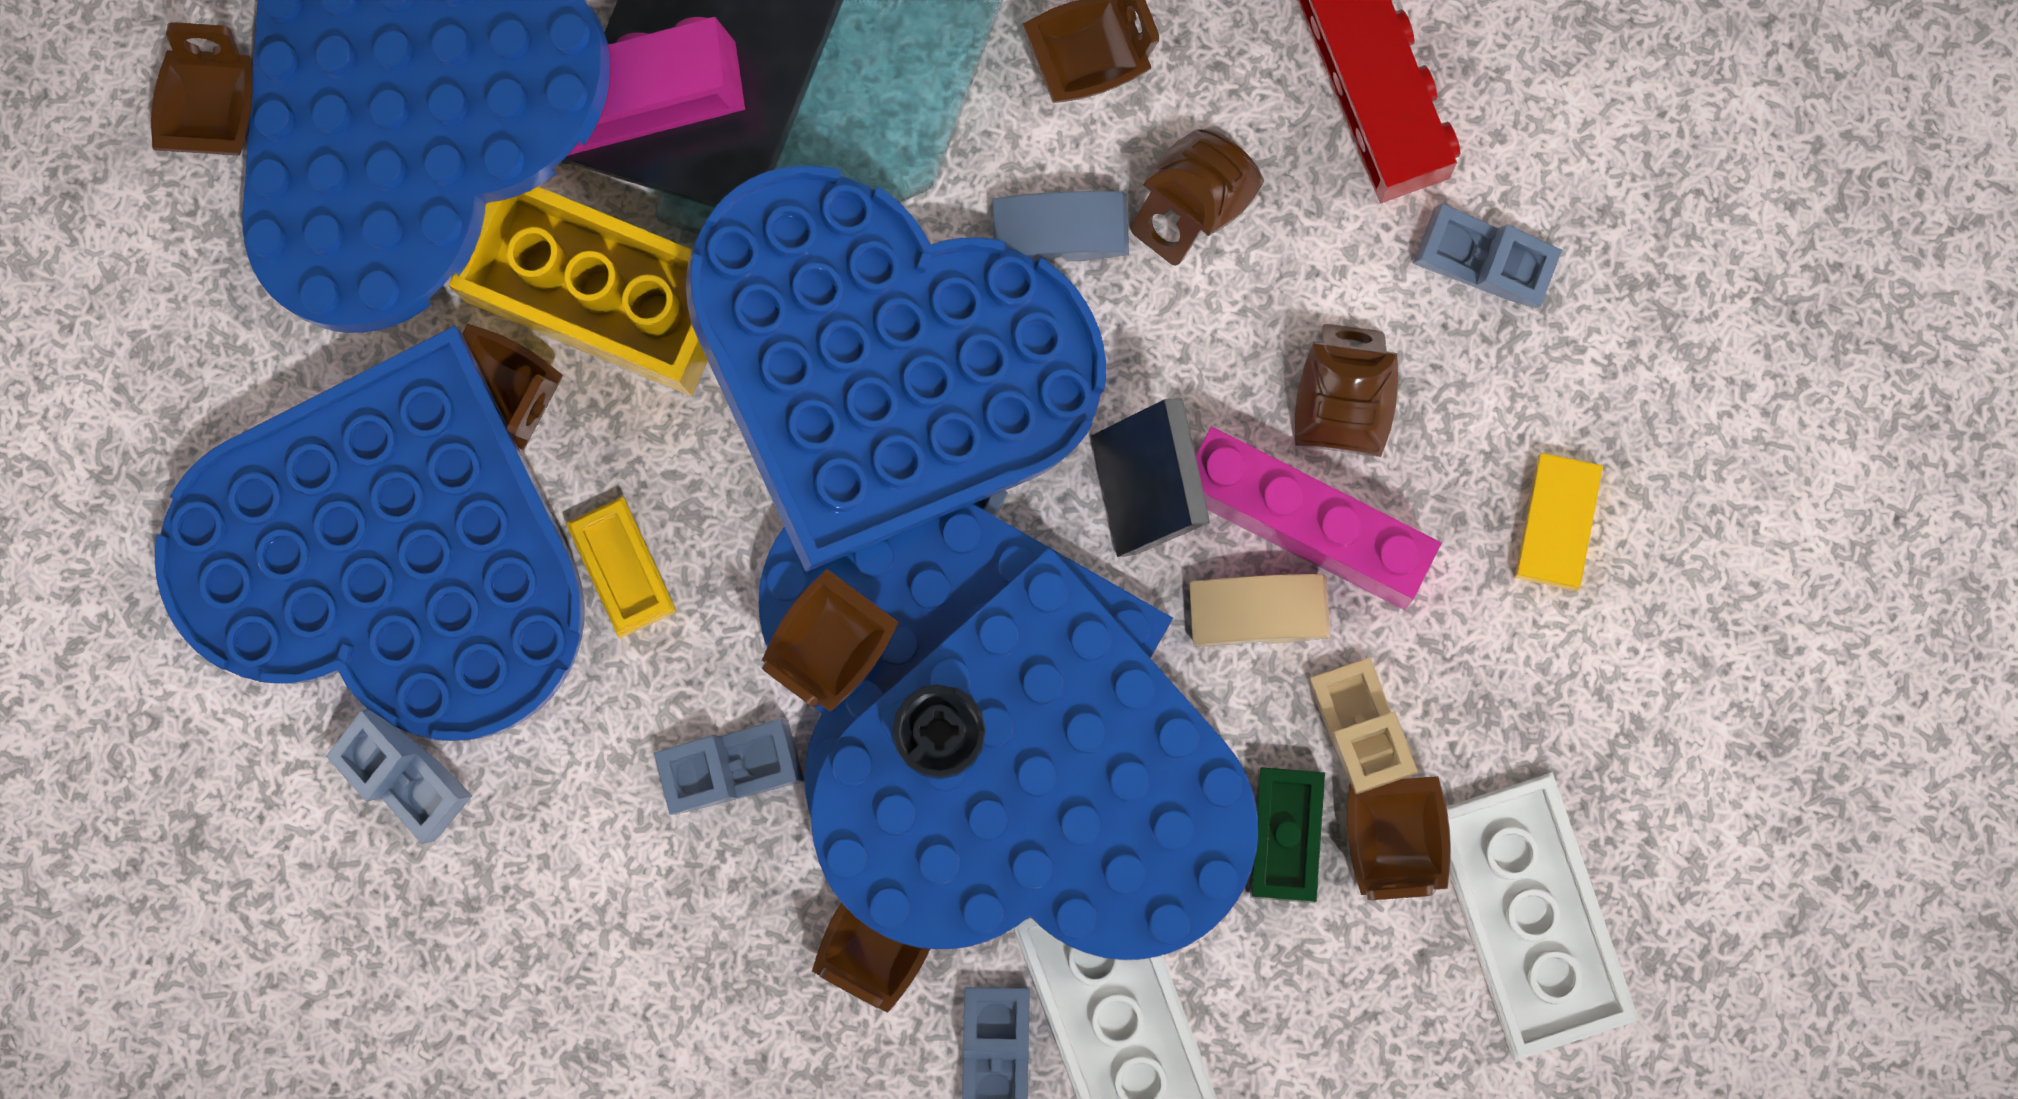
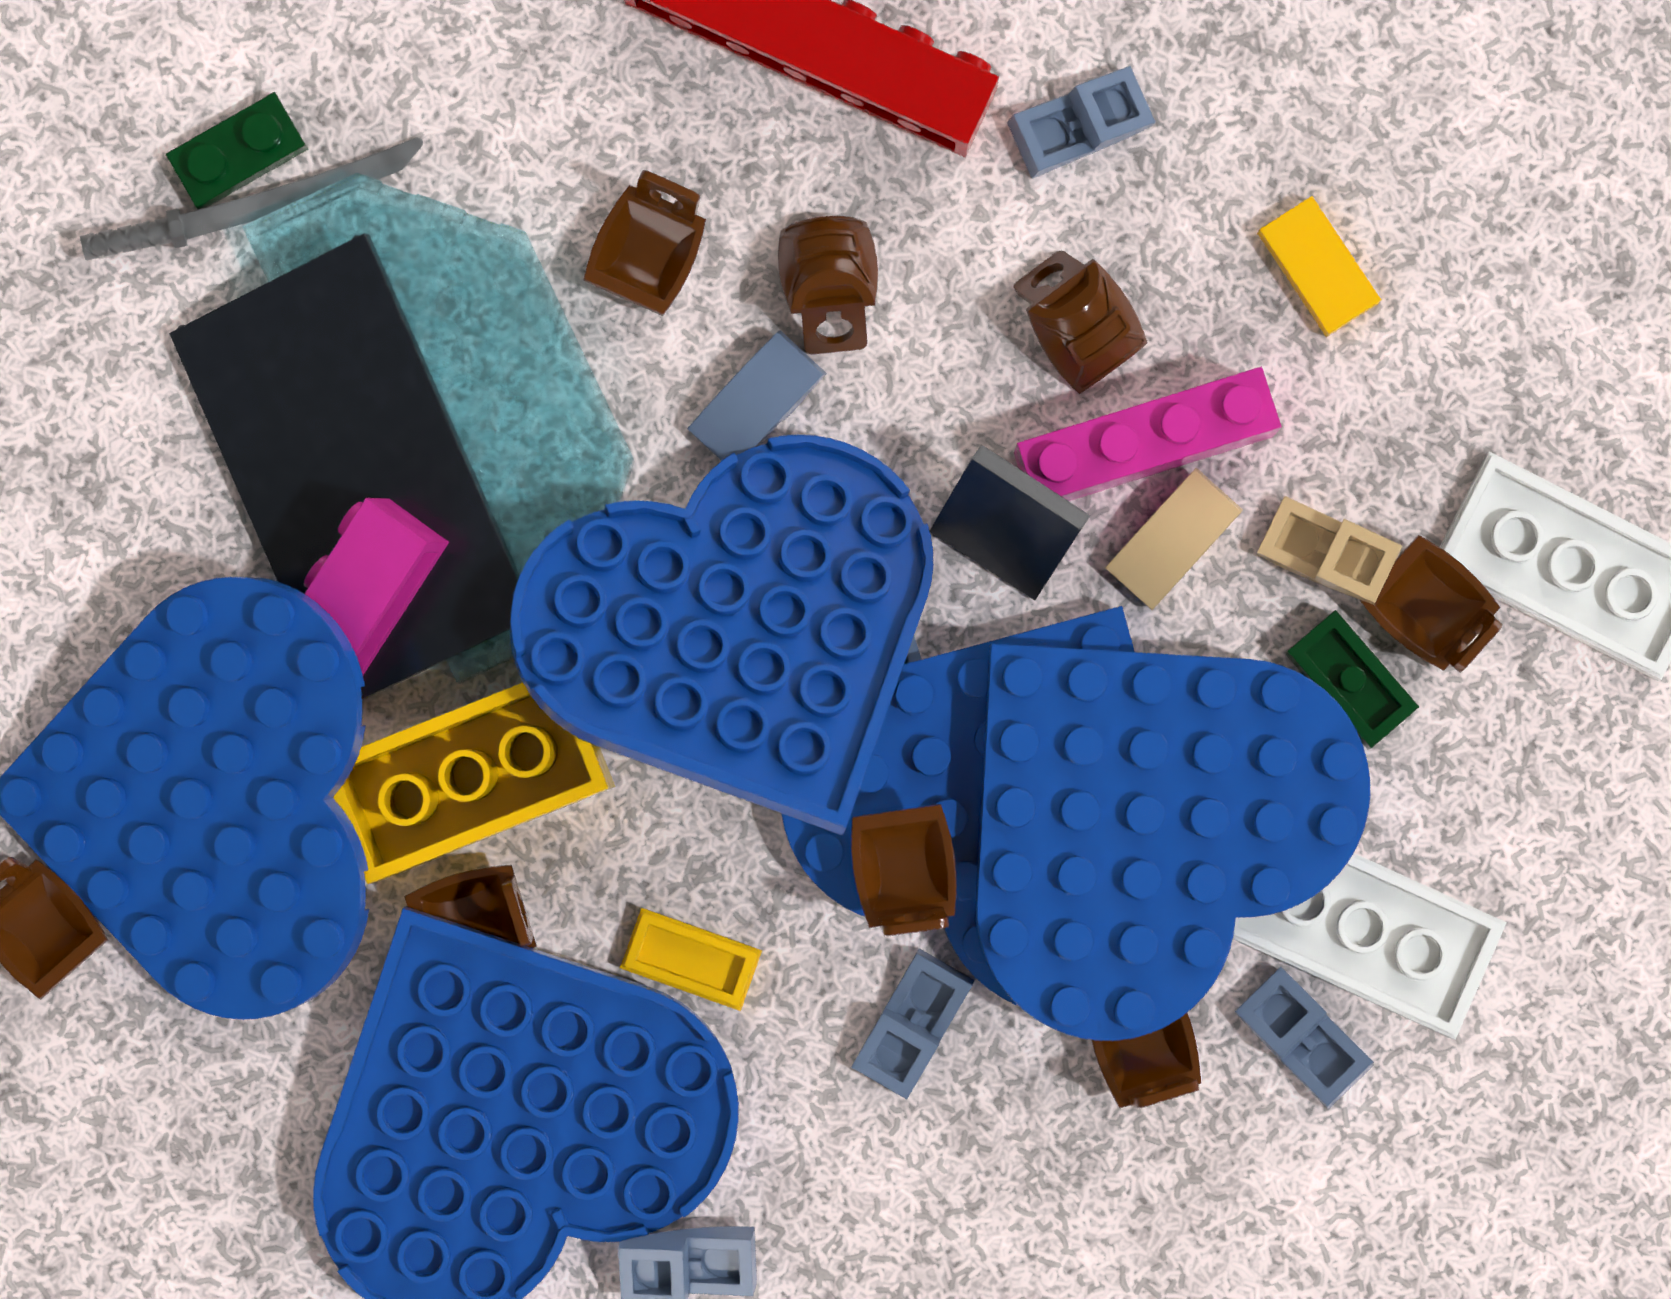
camera: 45 degrees left, 5 degrees up
(939, 731) = (1051, 854): black wheel -> none

